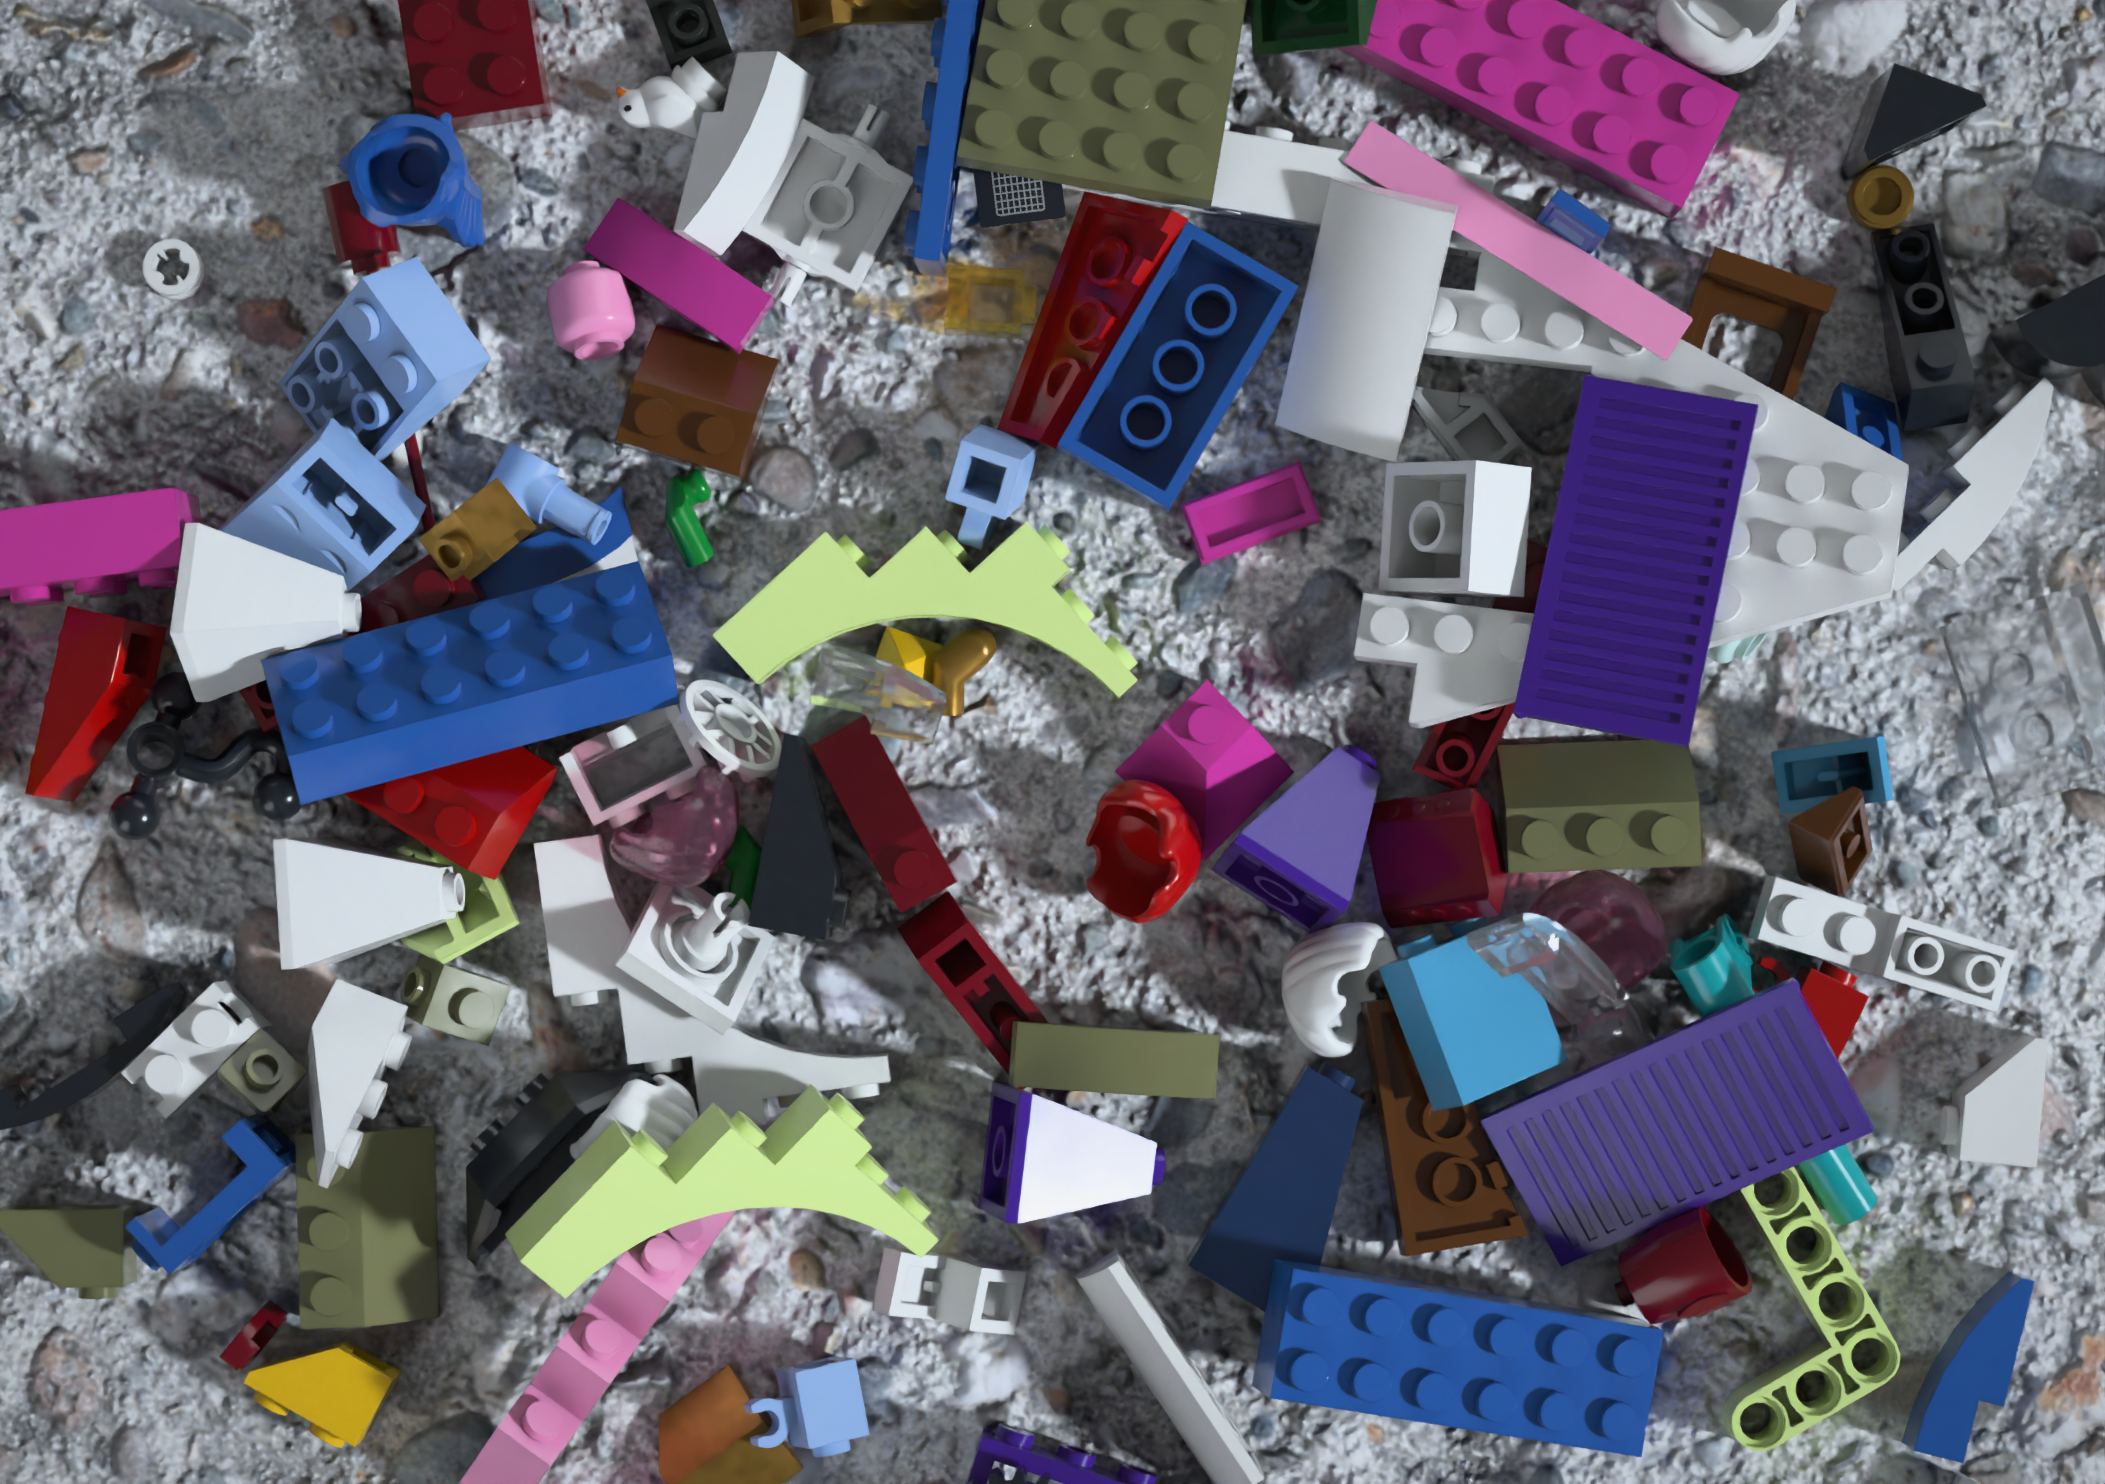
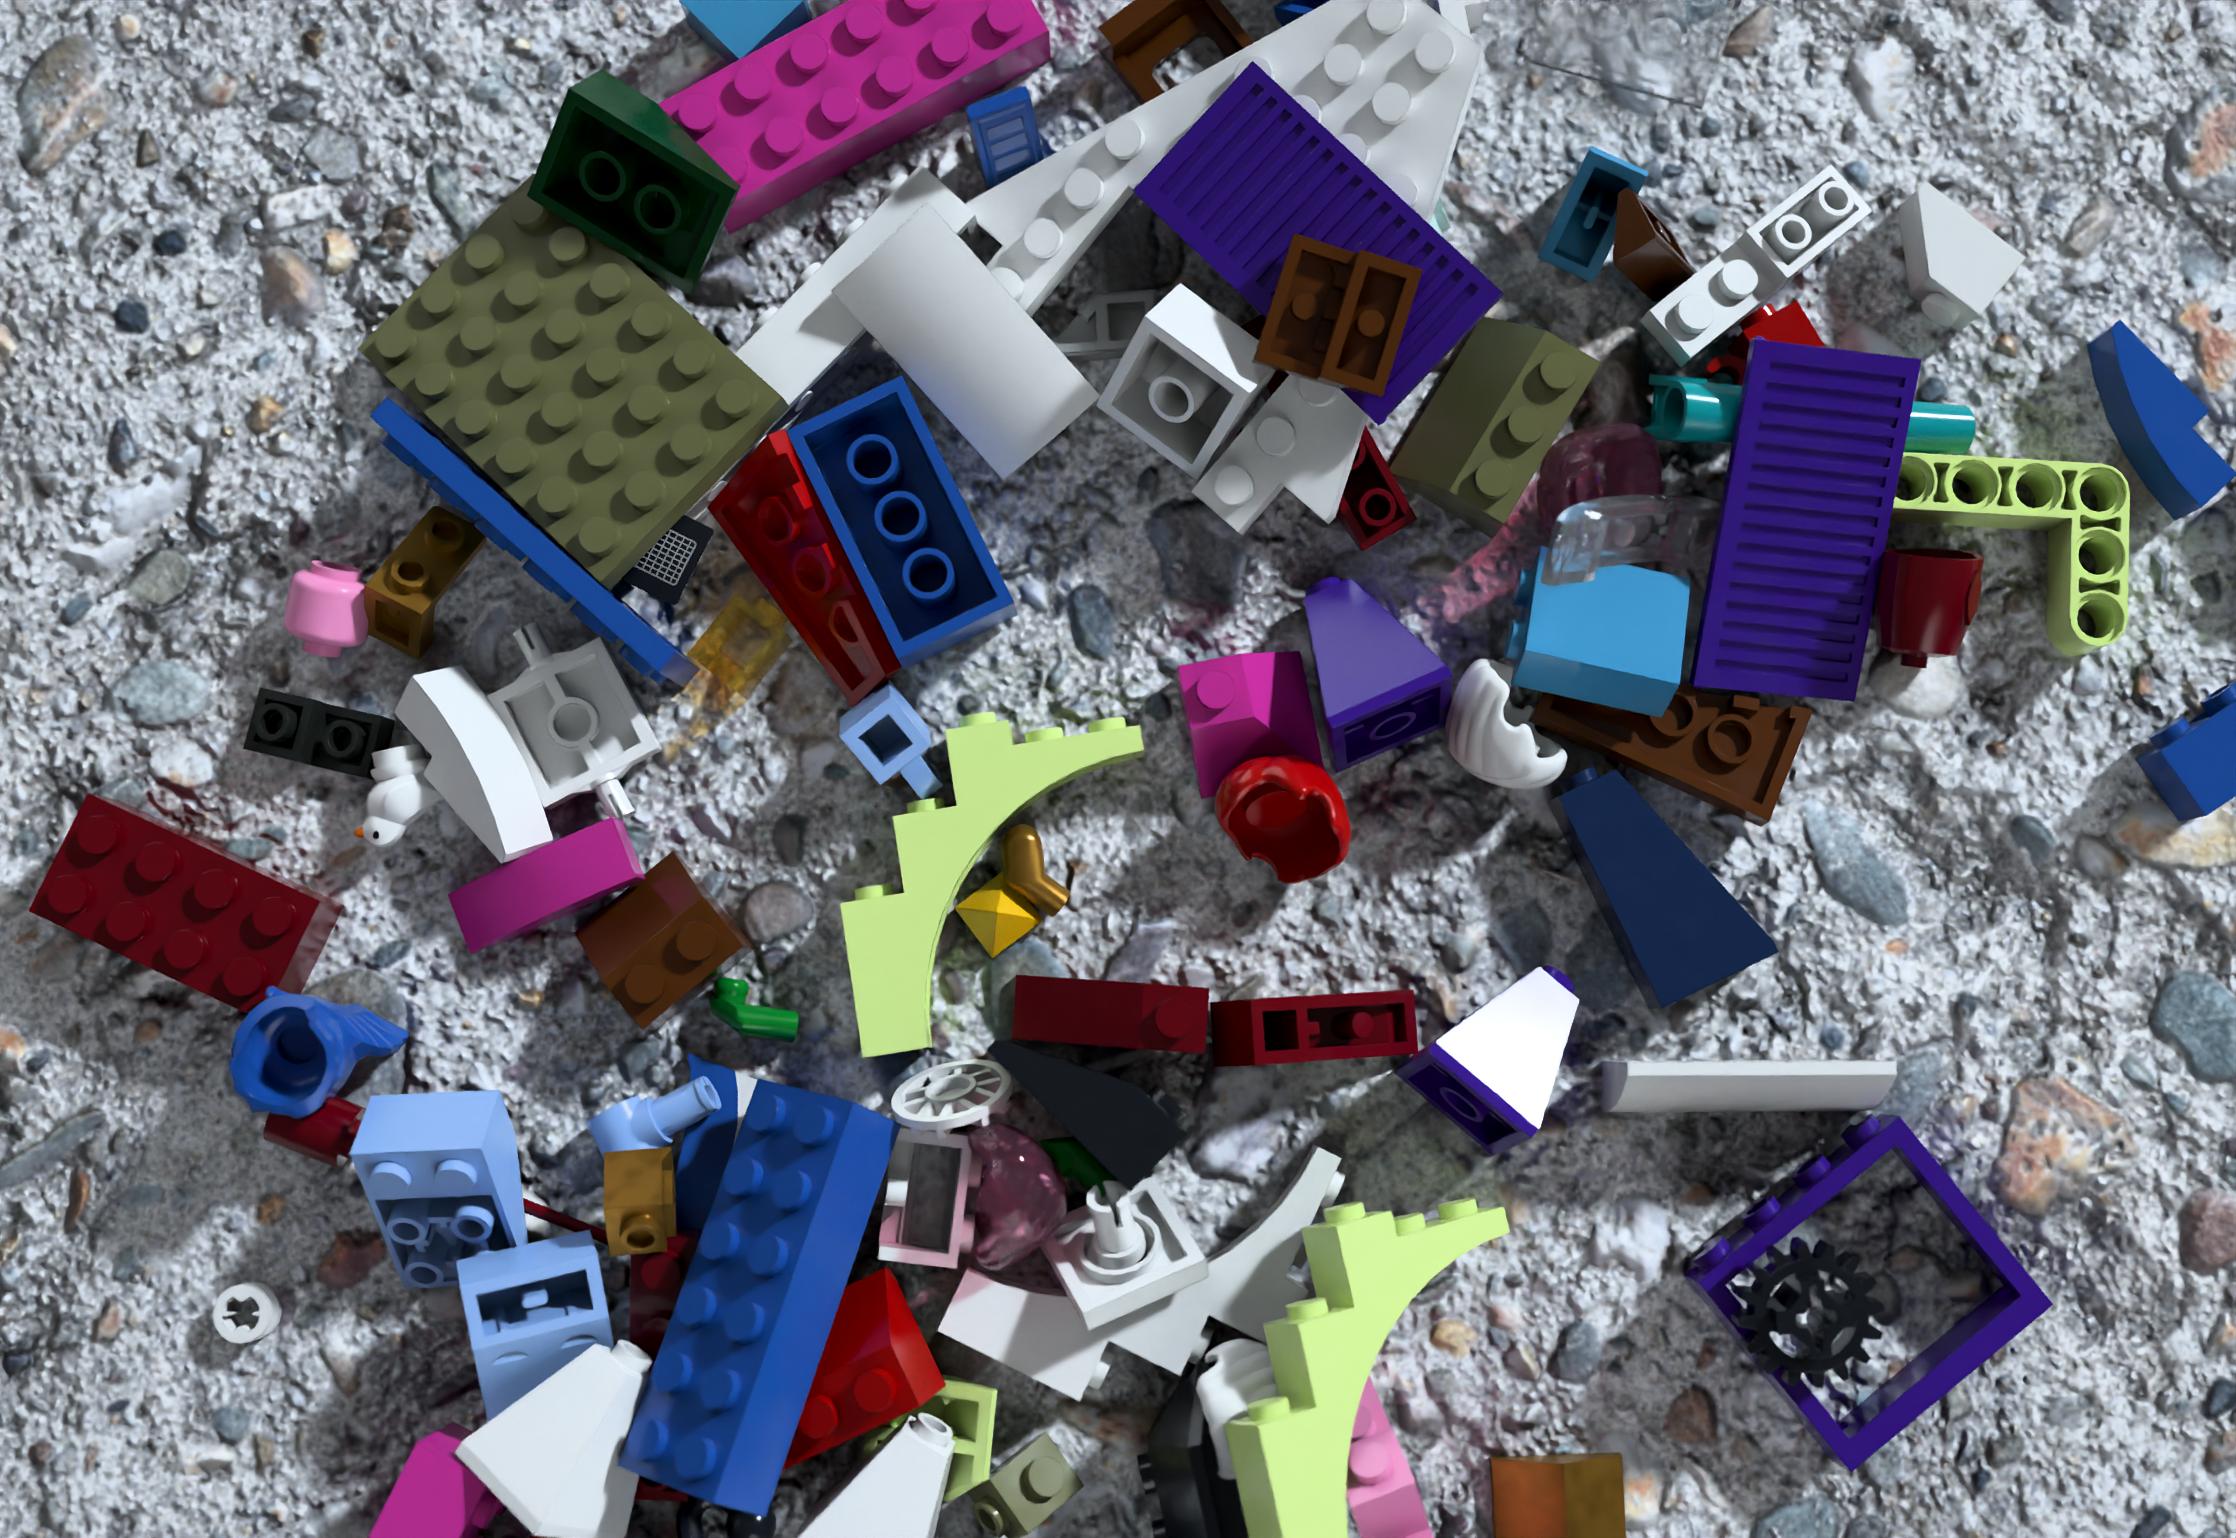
camera: 55 degrees left, 5 degrees down
(590, 311) = (523, 979): bright pink head -> none
(817, 1407) = (1581, 1408): light blue brick -> none
(897, 699) = (1016, 940): clear slope -> none
(949, 1290) = (1549, 1226): white slope -> none
(1114, 1059) = (1445, 956): olive slope -> none
(1250, 513) = (1062, 546): dark pink tile -> none
(1437, 858) = (1452, 577): dark red slope -> none
(1457, 1358) = (1886, 834): blue brick -> none
(1522, 242) = (990, 171): bright pink sticker -> none
(1580, 620) = (1337, 316): none -> reddish brown slope

